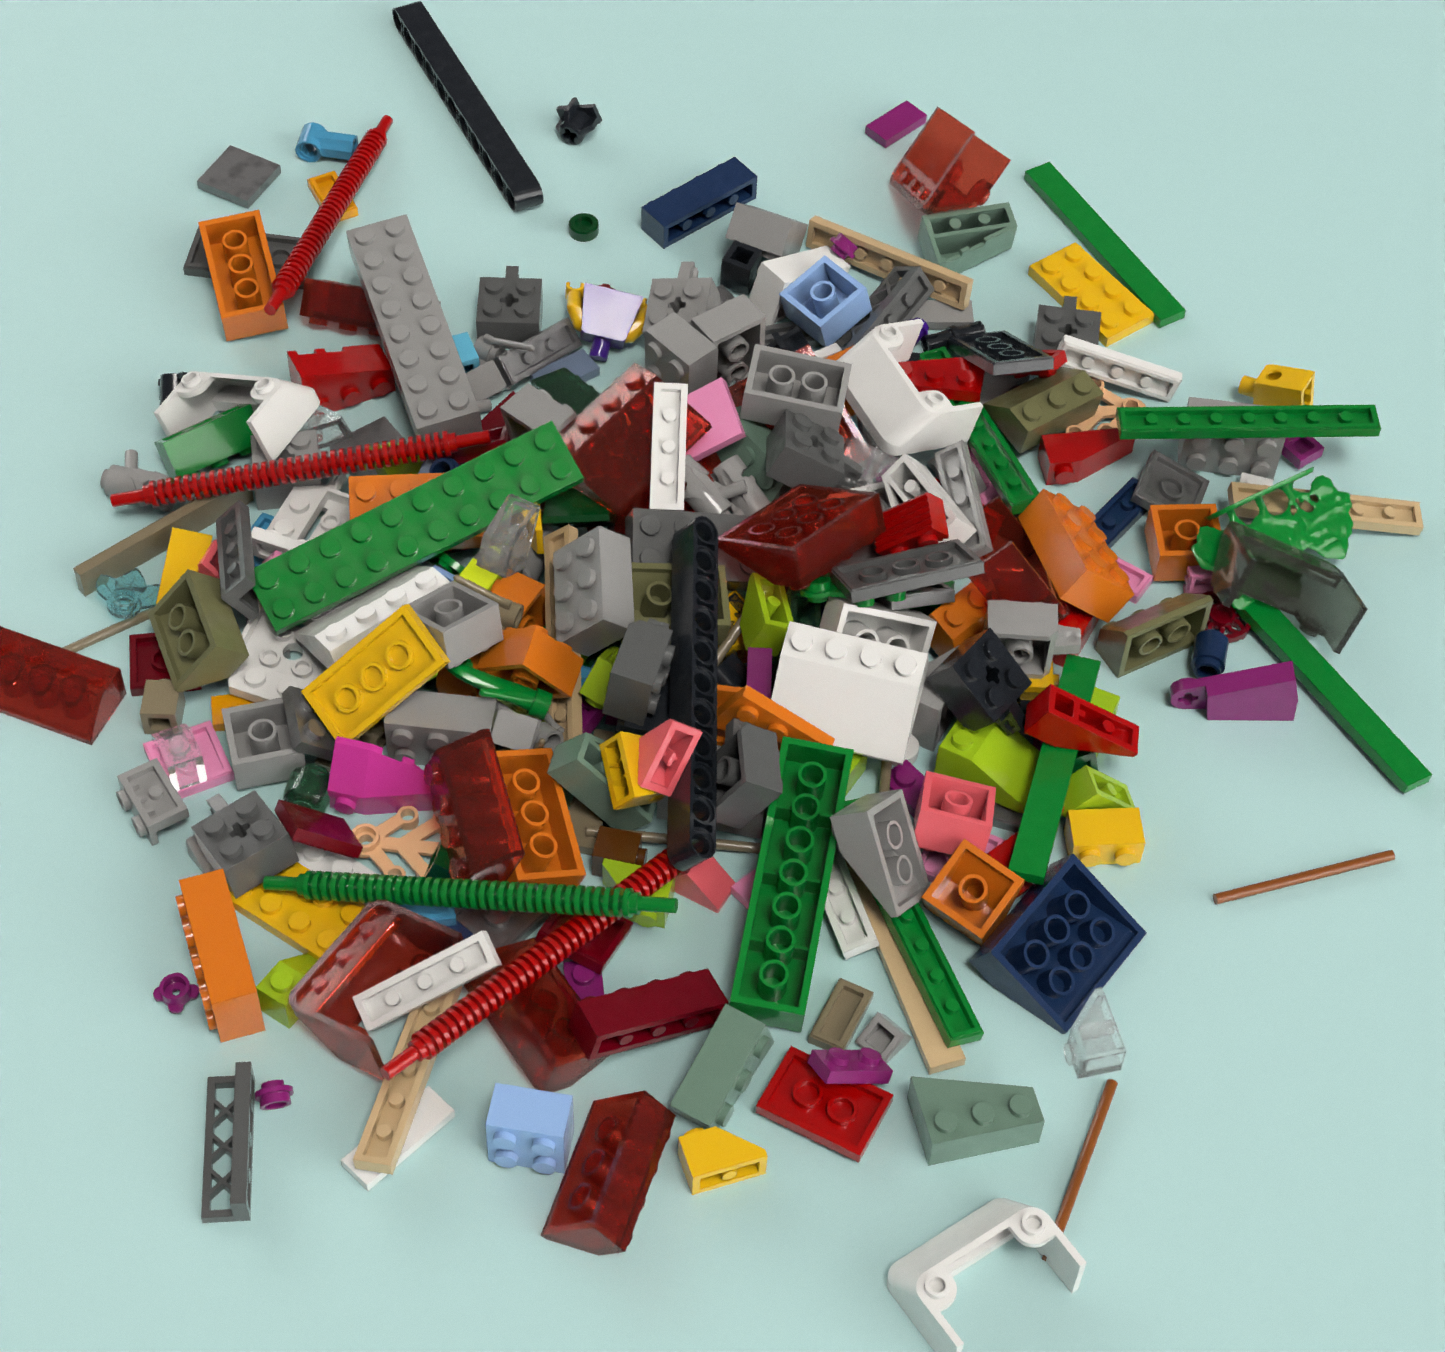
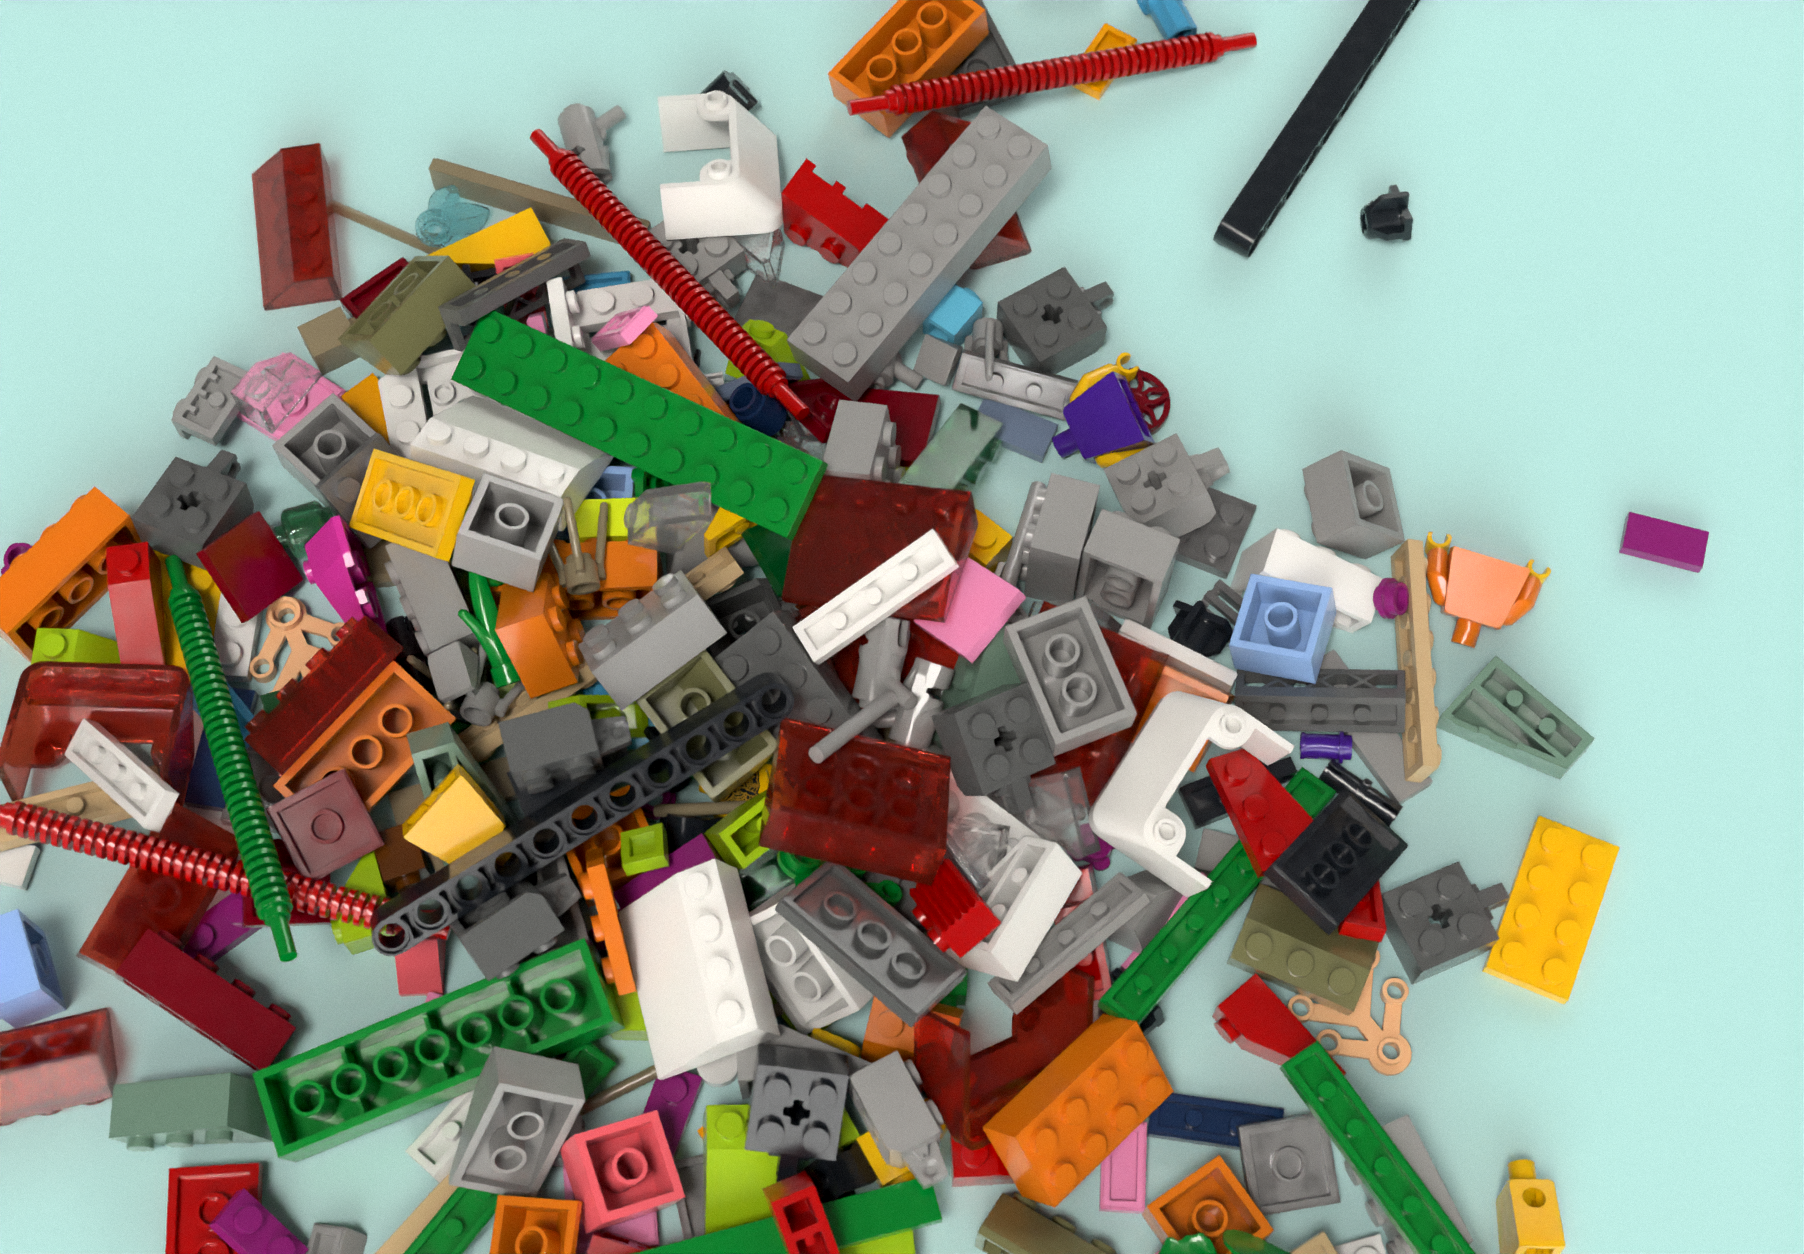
camera: 60 degrees right, 15 degrees up
(207, 442) = (657, 158): green brick -> none
(286, 914) = (137, 603): none -> slope
(335, 500) = (623, 328): none -> bright pink tile
(571, 858) = (325, 826): none -> dark red tile
(583, 227) = (1242, 319): dark green tile -> none
(665, 755) = (461, 838): coral slope -> none
(698, 202) = (1363, 409): dark blue brick -> none
(718, 1159) = (89, 1163): yellow slope -> none
(733, 680) = (644, 849): none -> lime plate
(740, 267) = (1285, 507): black brick -> none
(748, 510) = (853, 726): none -> light grey bar
(841, 1016) = (335, 1192): dark tan tile -> none
(866, 208) = (1479, 588): none -> torso
(947, 167) = (1571, 638): clear red windscreen -> none
(1104, 243) = (1646, 883): green tile -> none
(1120, 368) = (1426, 1006): white tile -> none

